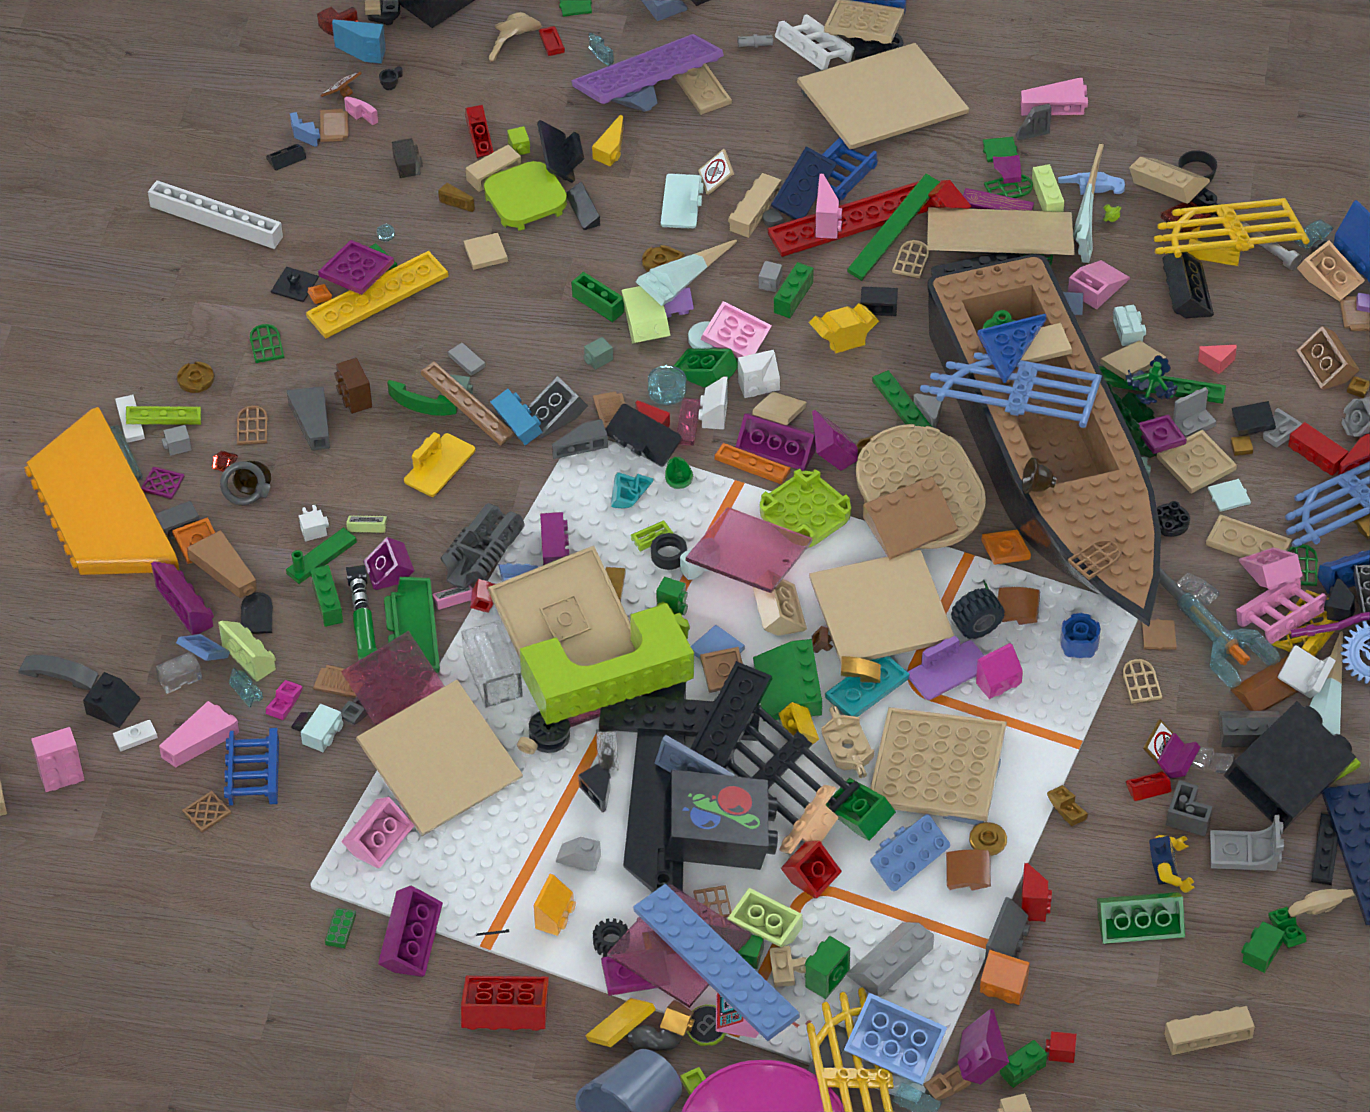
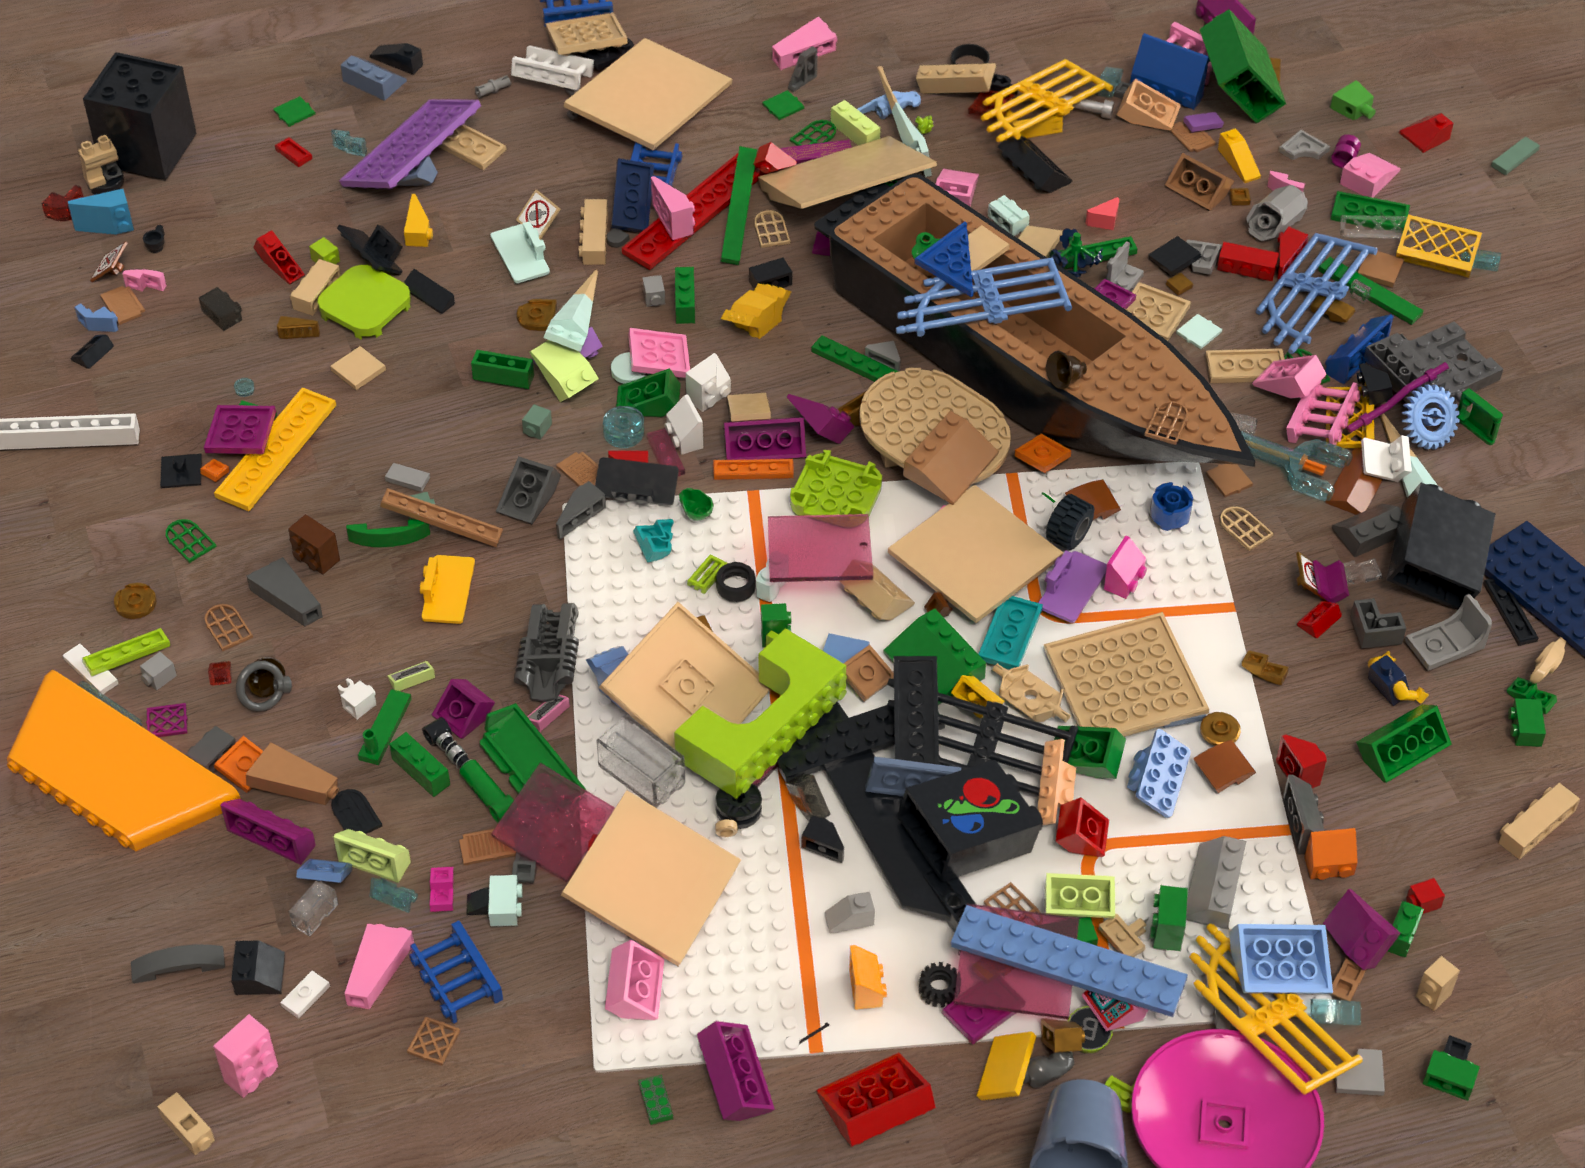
camera: 30 degrees left, 0 degrees up
(480, 596) = (584, 698): red brick -> none
(515, 24) = (250, 148): tan hat -> none
(517, 416) = (498, 511): dark azure brick -> none
(553, 536) = (617, 616): magenta brick -> none
(858, 667) = (998, 617): pearl gold slope -> none
(1009, 168) = (807, 117): magenta slope -> none

